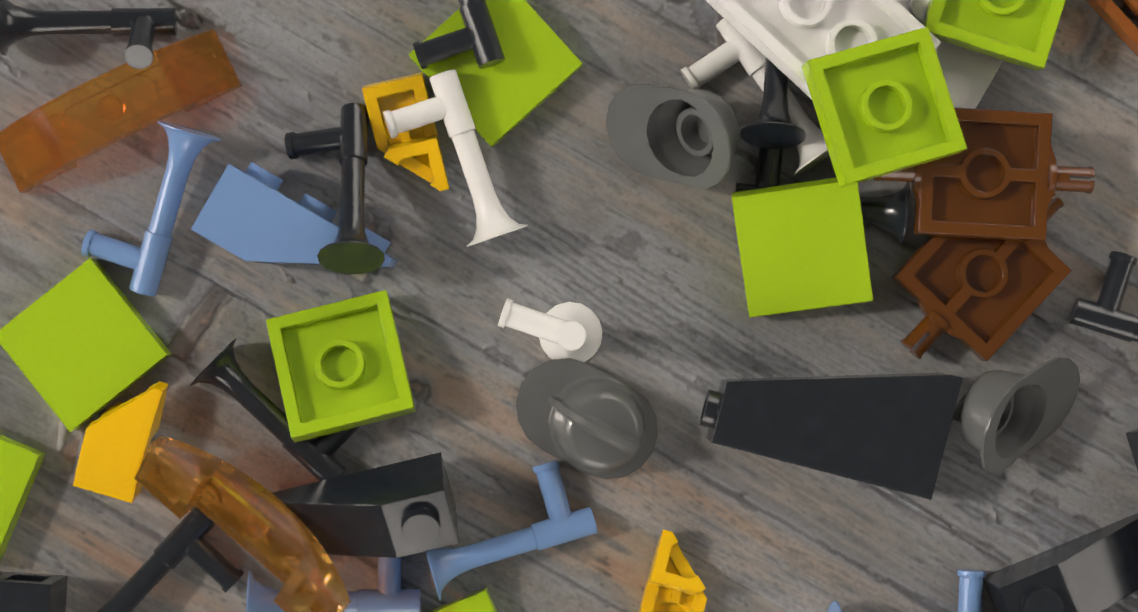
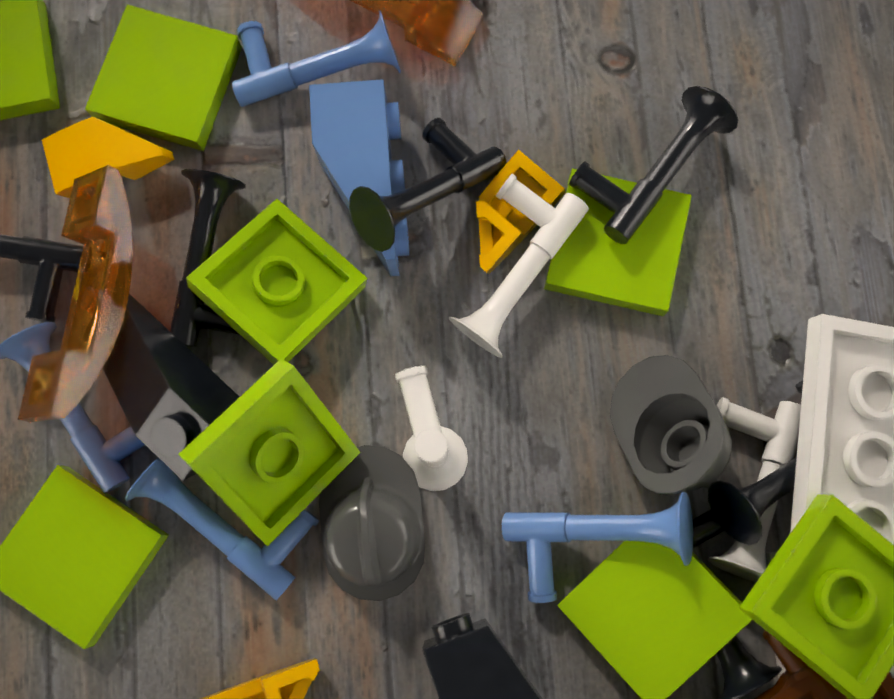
camera: 55 degrees right, 10 degrees down
(483, 458) = (271, 451): none -> lime tile
(749, 195) = (538, 529): none -> medium blue piece

